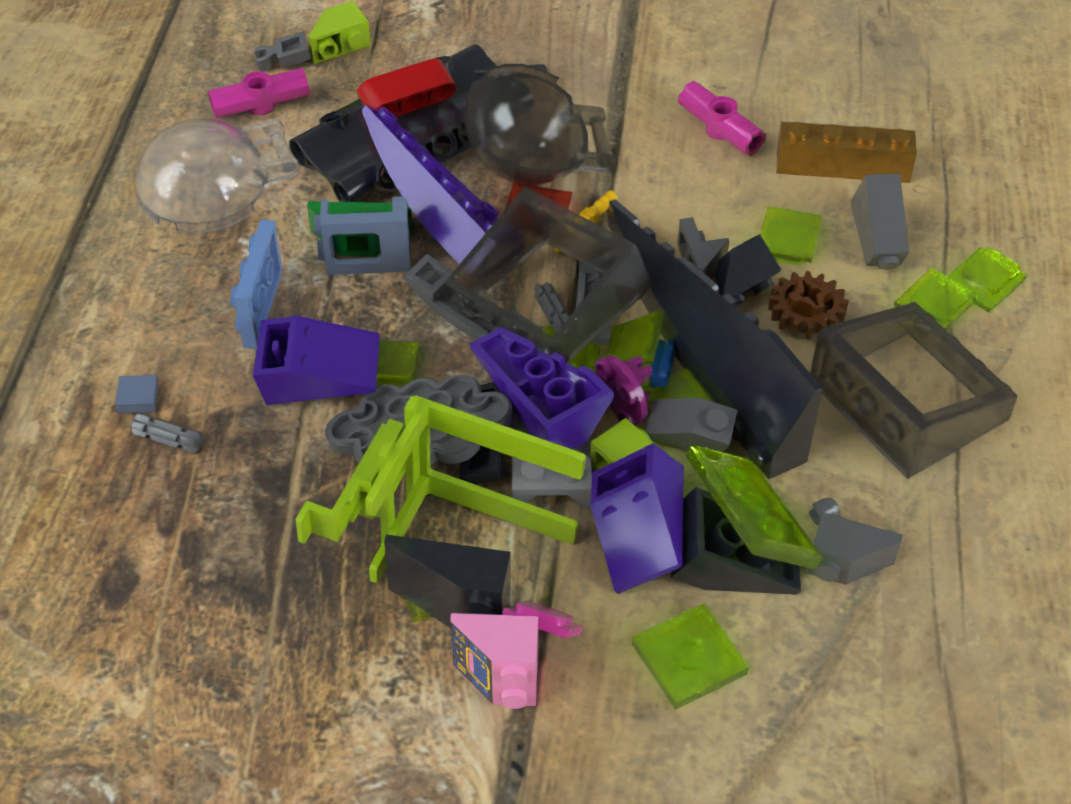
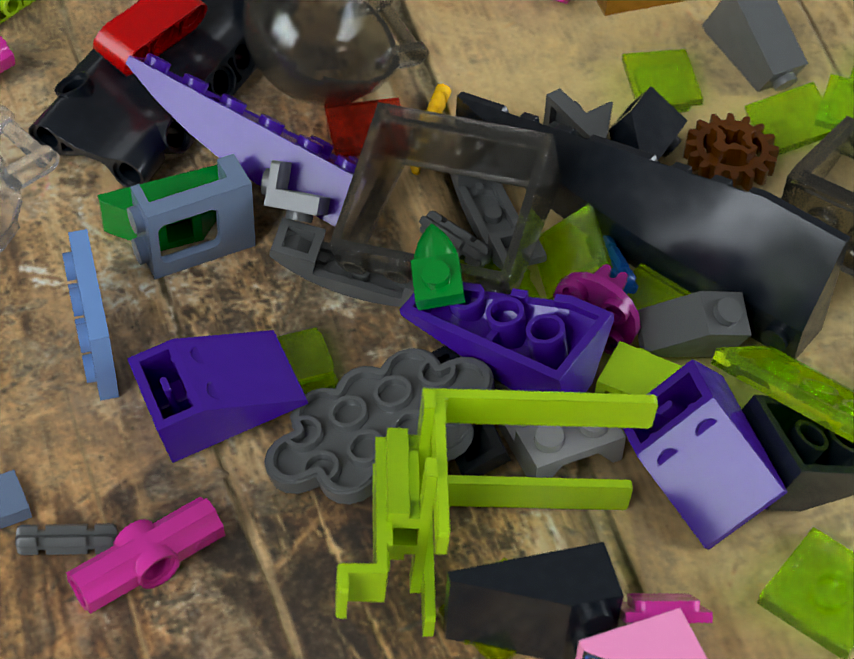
camera: 25 degrees left, 0 degrees up
(210, 460) = (145, 554): none -> dark pink piece
(430, 235) = (298, 205): none -> bracket
(506, 324) = (436, 271): none -> green plate
(875, 291) = (794, 117): none -> clear neon green piece

